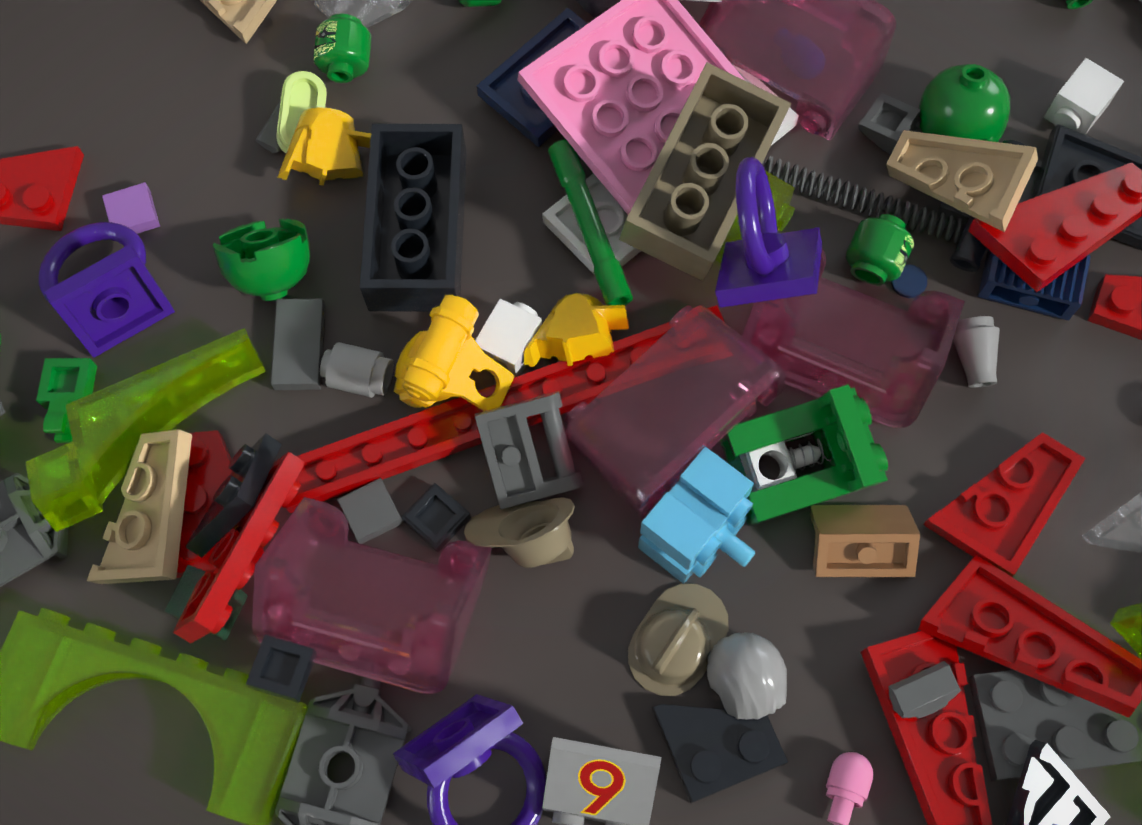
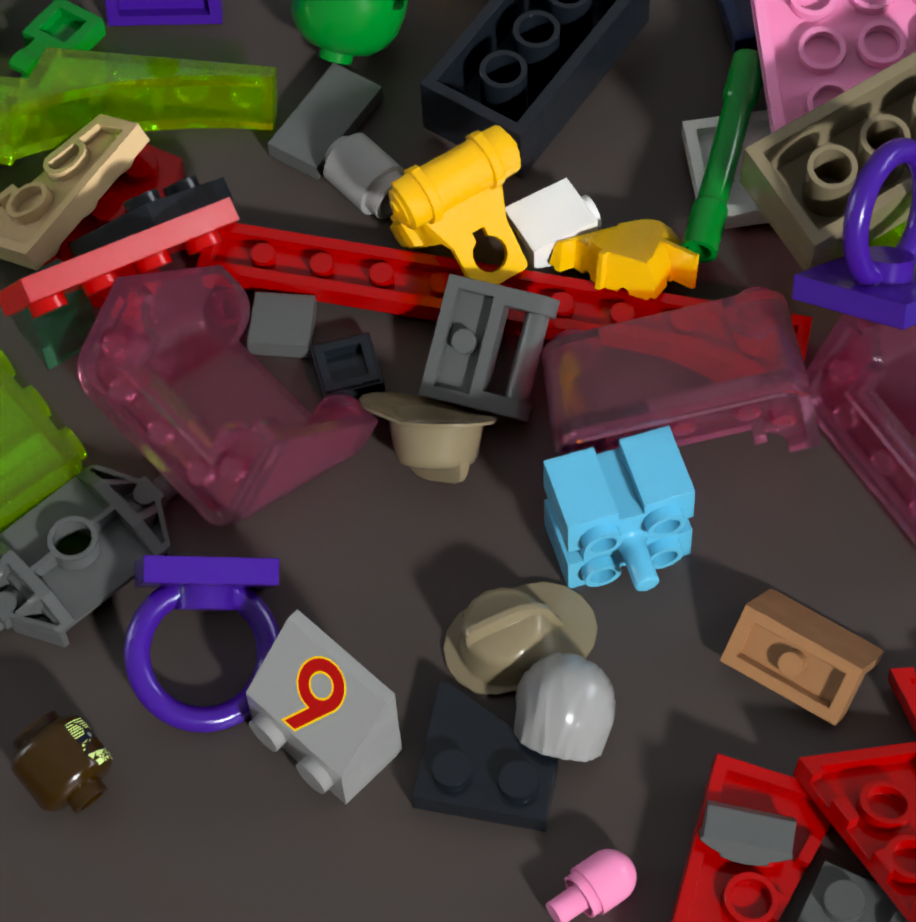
camera: 35 degrees right, 10 degrees down
(281, 668) = (80, 408): black tile -> none
(842, 442) = (846, 490): green brick -> none

